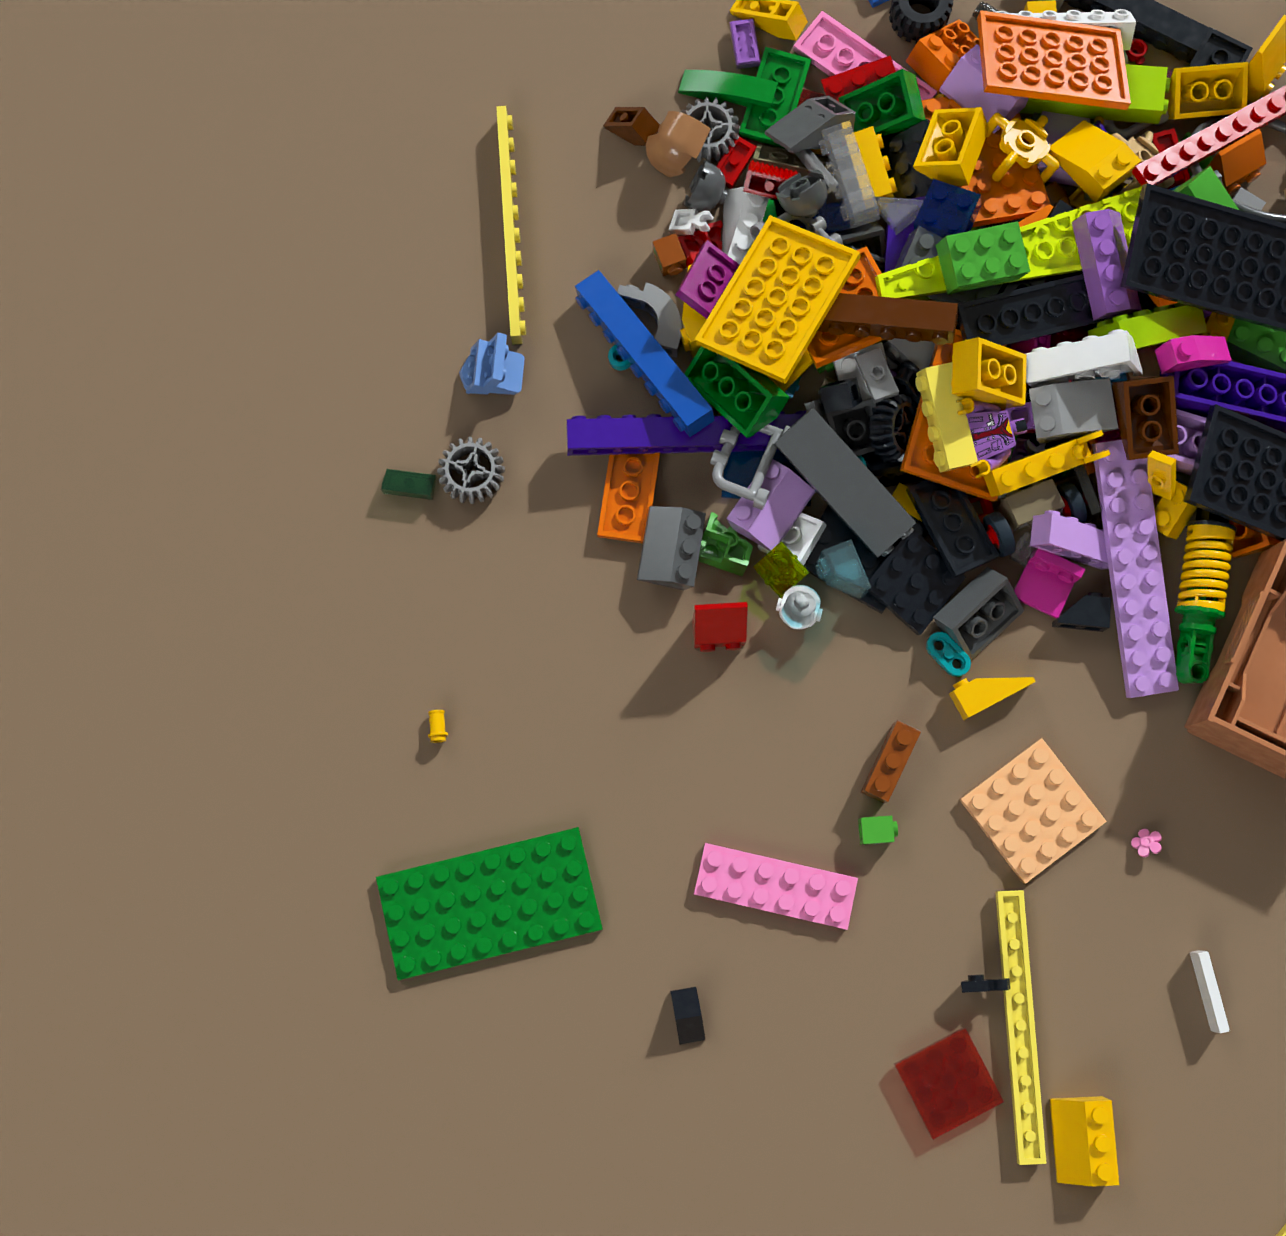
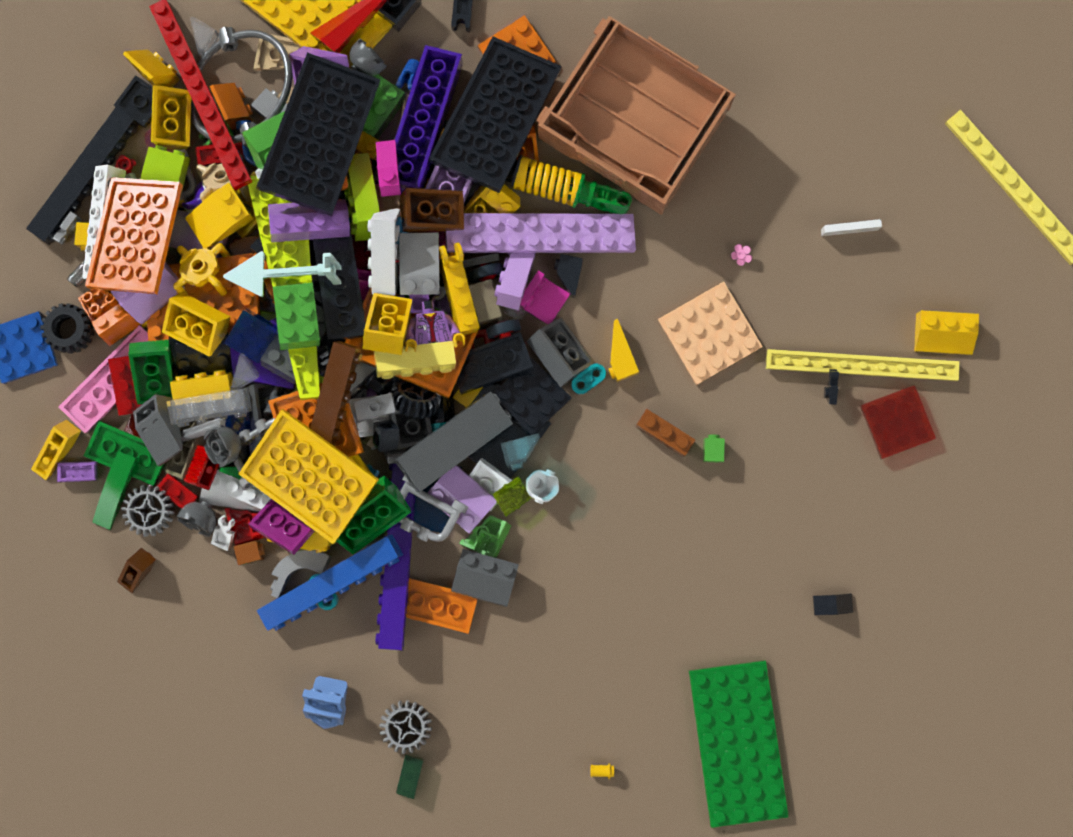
camera: 80 degrees left, 5 degrees up
(511, 234) = (198, 675): light yellow plate -> none
(676, 143) = (160, 537): medium nougat brick -> none
(720, 626) = (552, 548): red slope -> none
(776, 886) = (746, 528): bright pink plate -> none
(1029, 202) = (251, 273): none -> light aqua piece
(1162, 474) = (477, 205): yellow plate -> none

